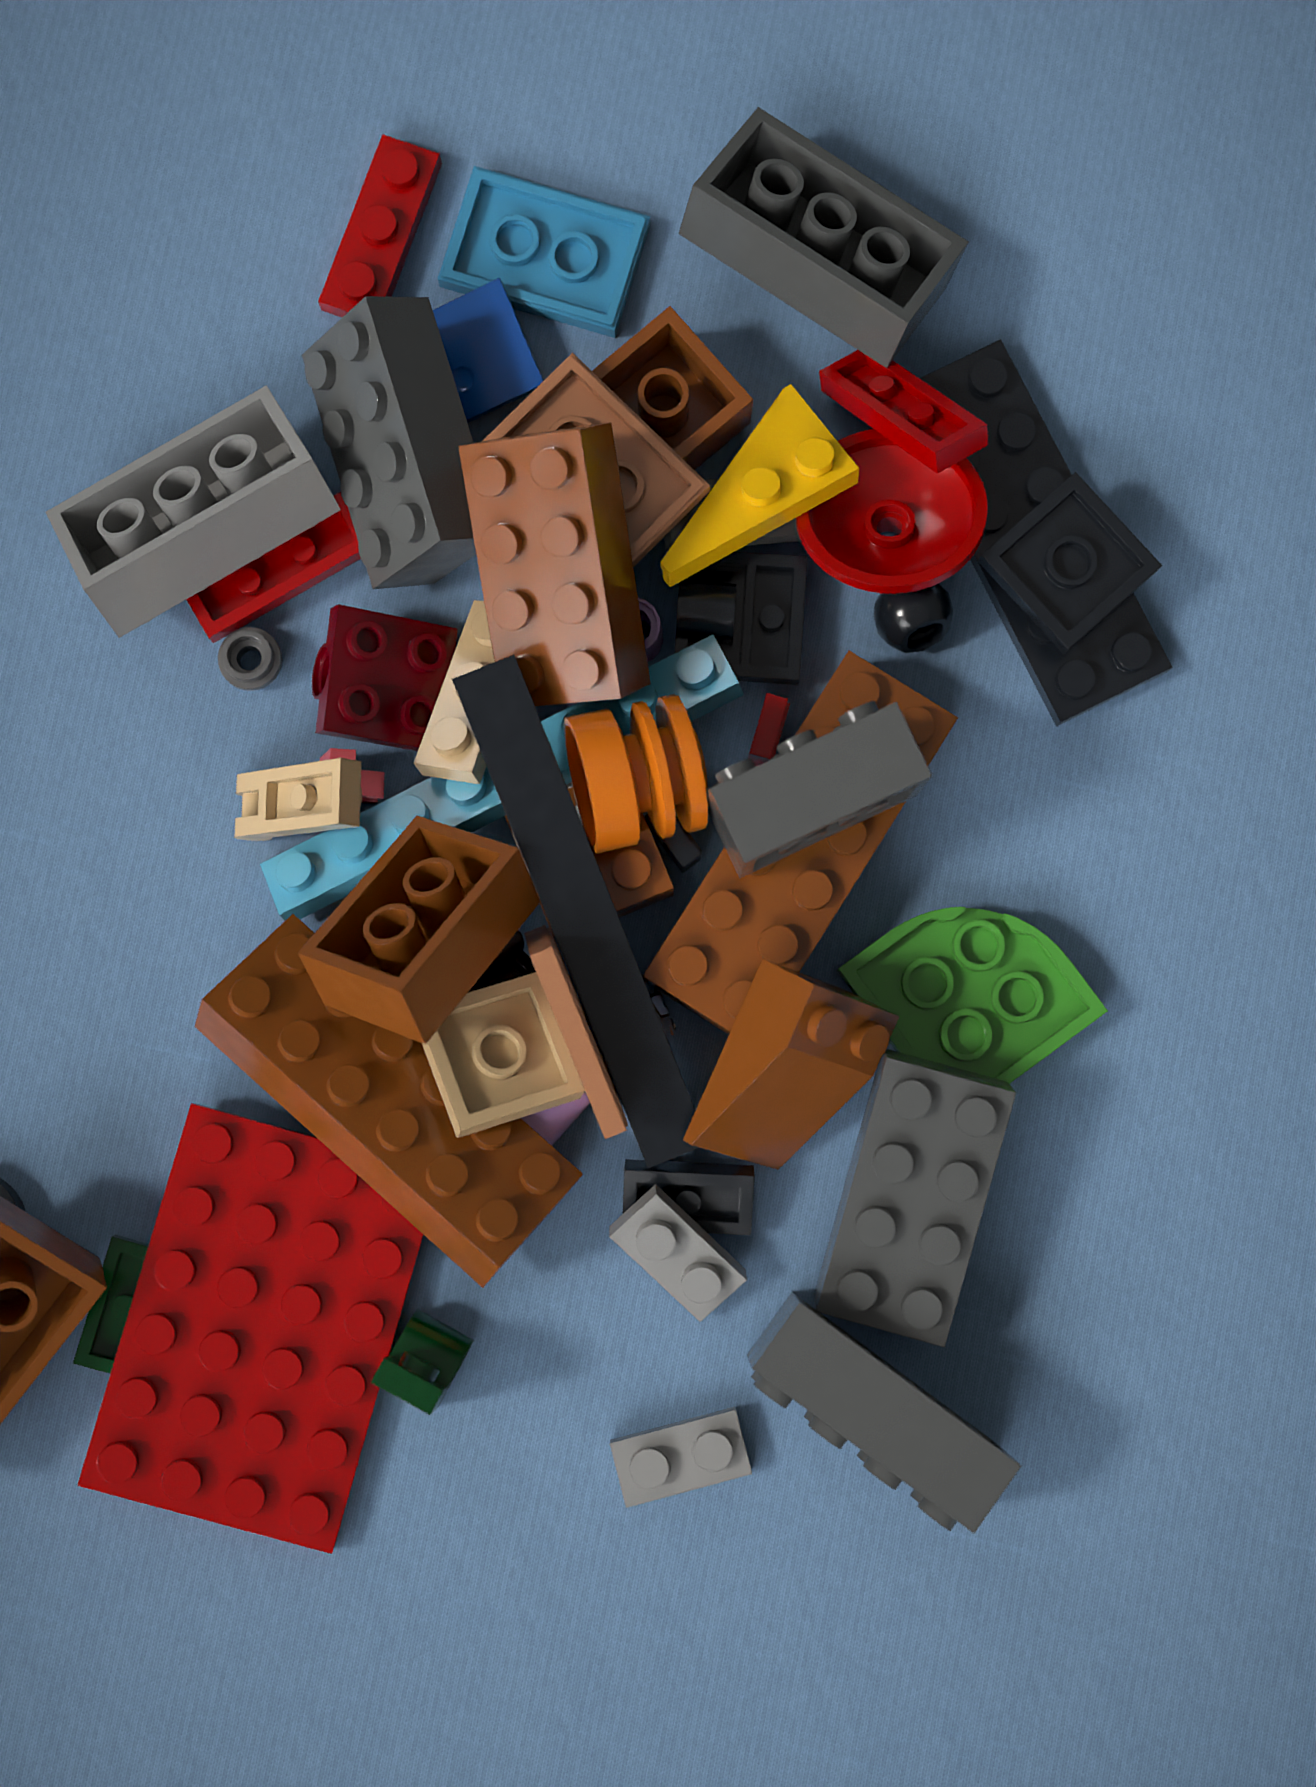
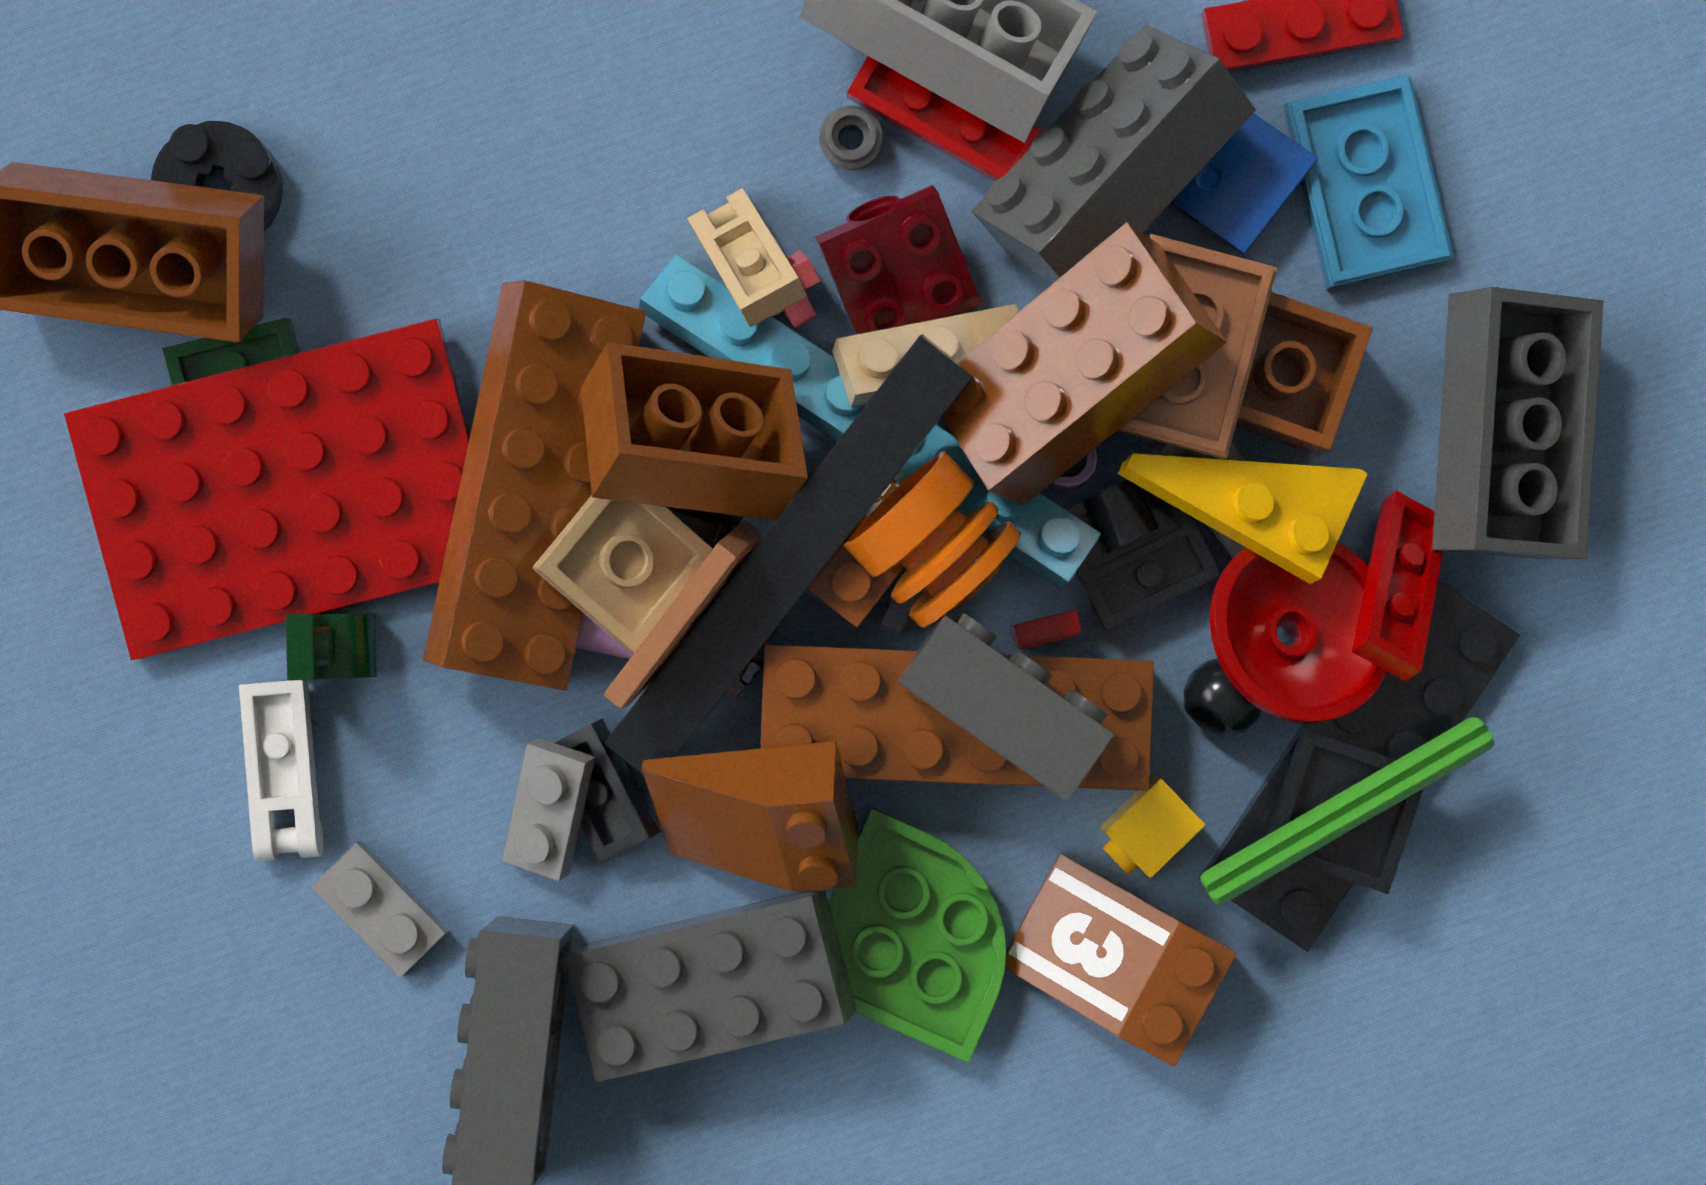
camera: 55 degrees right, 5 degrees up
(505, 1473) = (280, 768): none -> white plate
(991, 739) = (1149, 829): none -> yellow brick
(1071, 558) = (1347, 810): none -> bright green axle
(1089, 830) = (1118, 959): none -> slope

